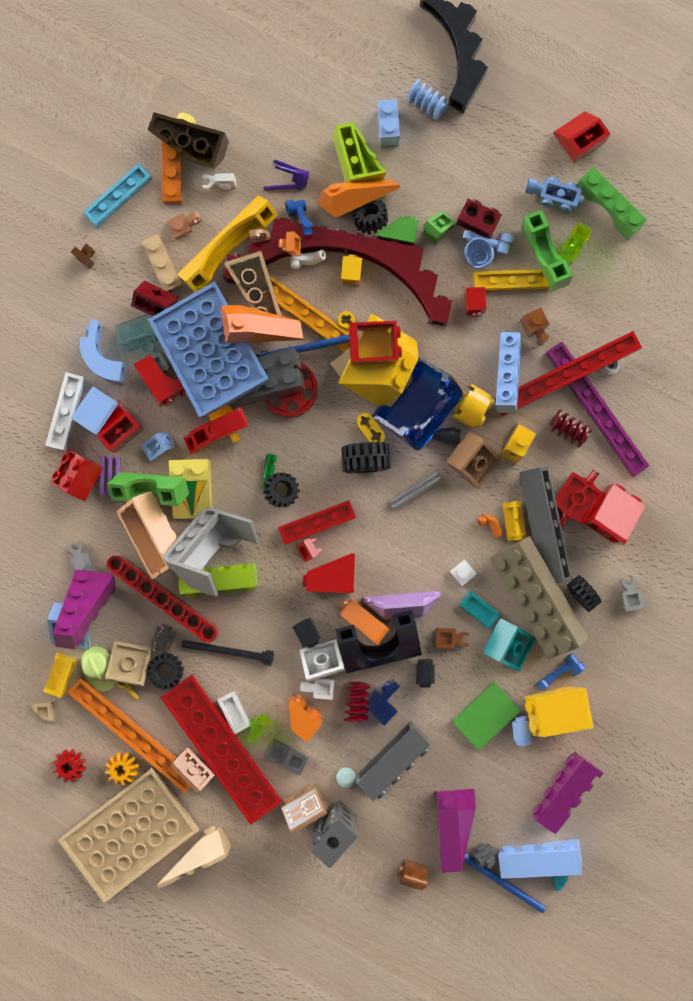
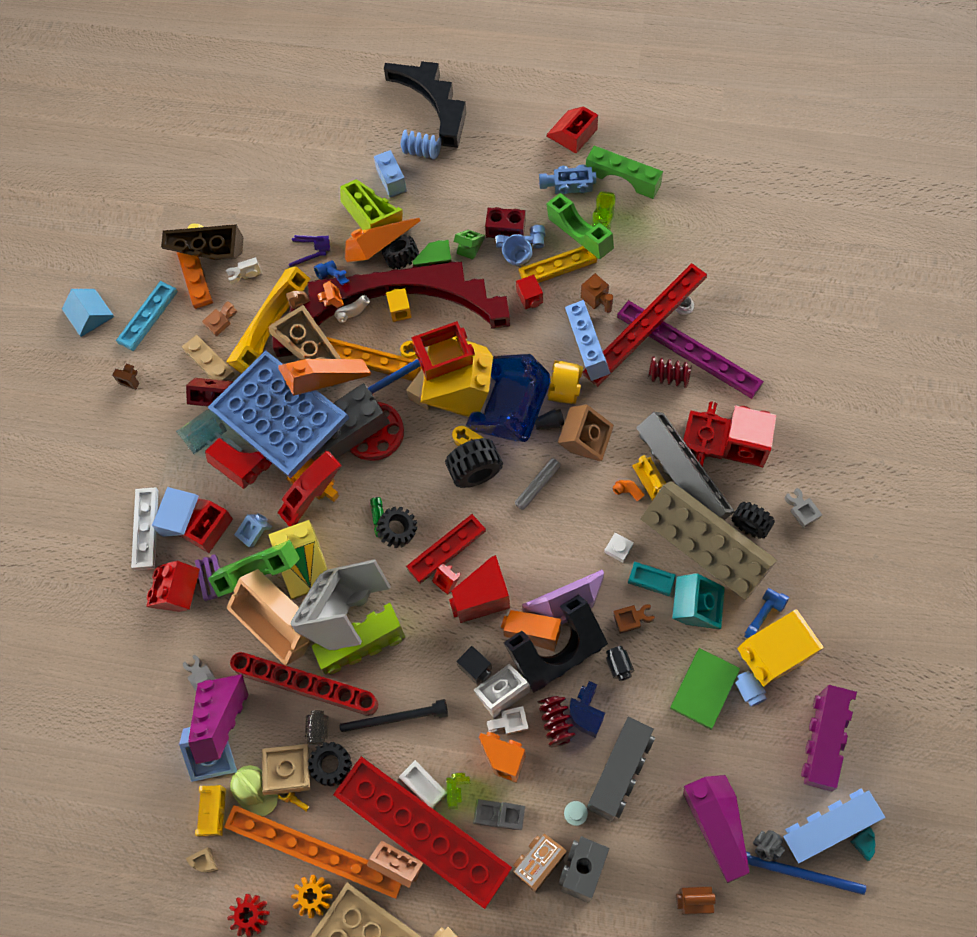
camera: 15 degrees left, 20 degrees down
(63, 169) = (86, 310): none -> dark azure slope
(90, 351) = (176, 473): light blue arch -> none
(517, 444) = (623, 399): yellow torso -> none

